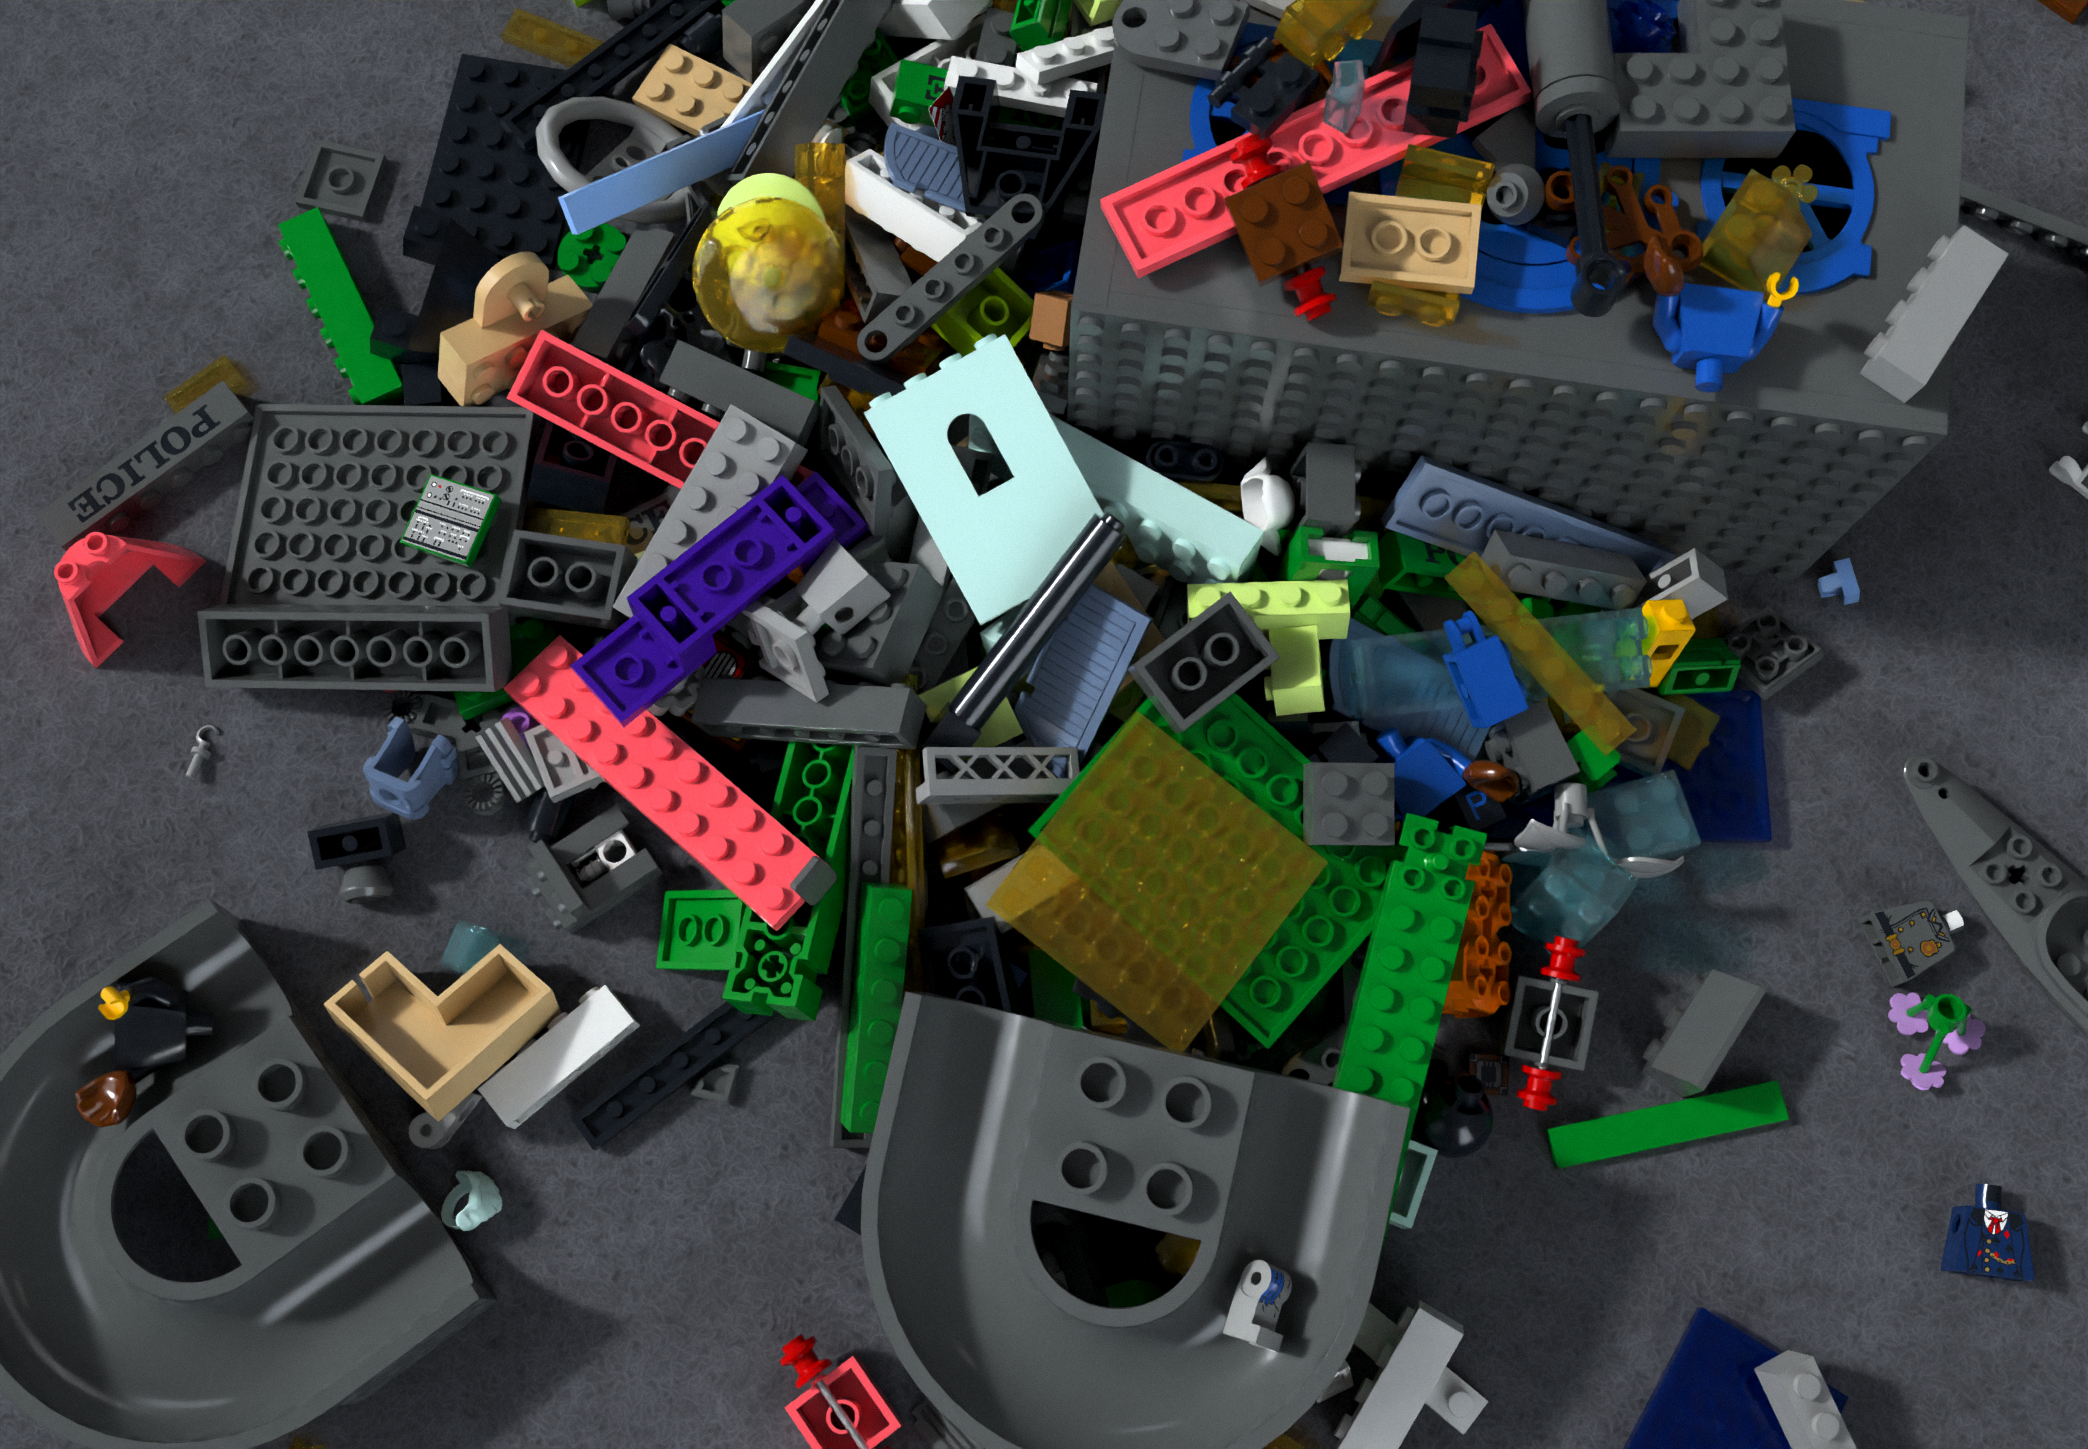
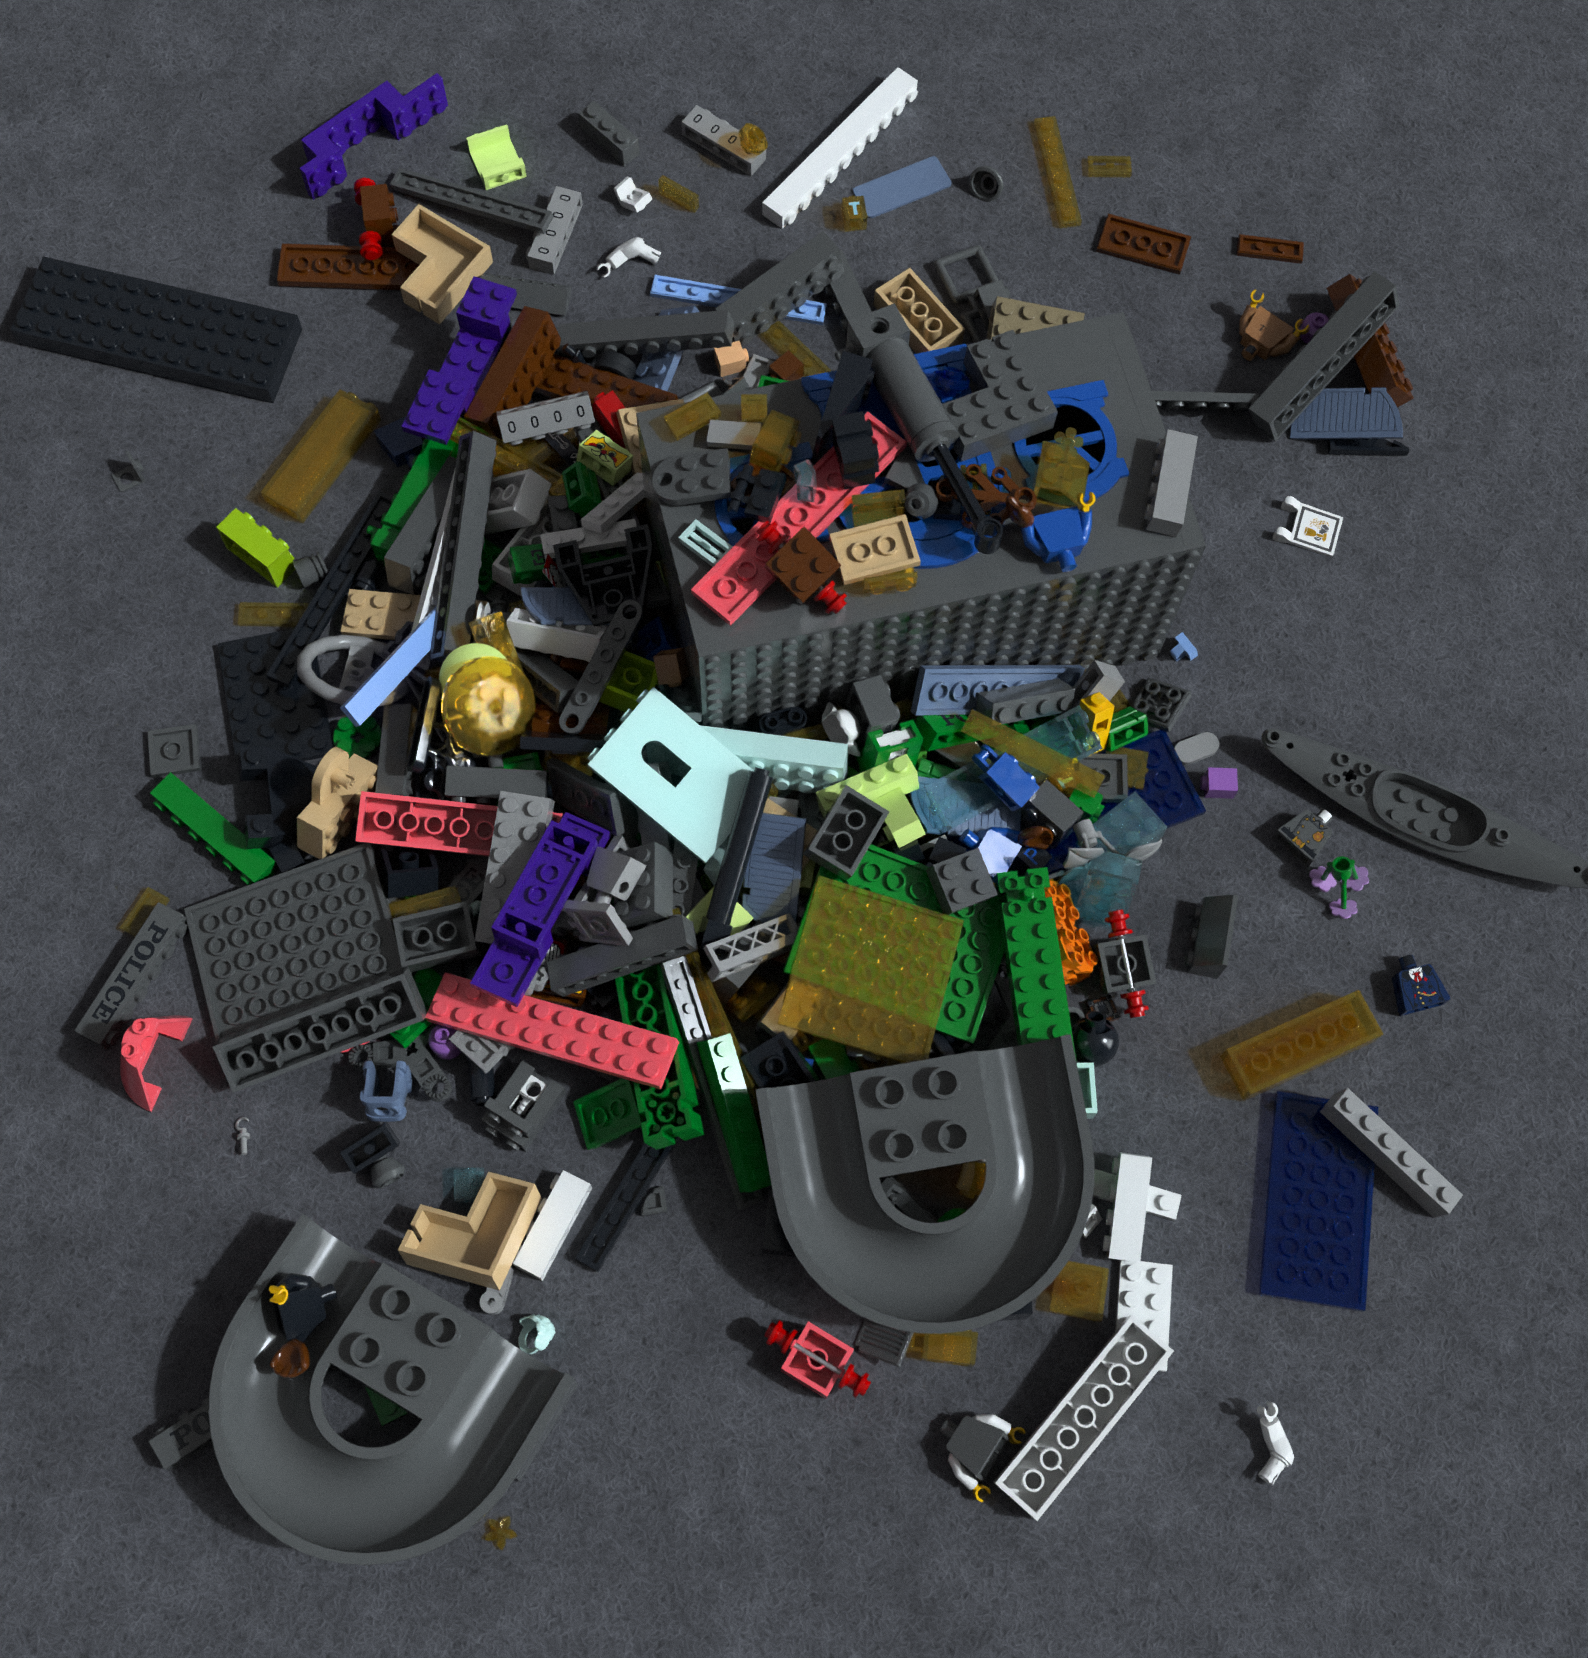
camera: 25 degrees left, 5 degrees down
(450, 520) = (348, 929): tile -> none
(508, 763) = (444, 1061): light grey tile -> none
(814, 880) = (671, 1050): dark grey piece -> none
(1138, 112) = (683, 538): none -> light aqua tile
(1258, 1305) = (1031, 1184): light grey leg -> none
(1666, 1124) = (1214, 997): green tile -> none
(1769, 1254) = (1301, 1045): none -> clear yellow brick
(1798, 739) = (1197, 748): none -> light grey tile
(1810, 806) = (1219, 783): none -> medium lavender brick

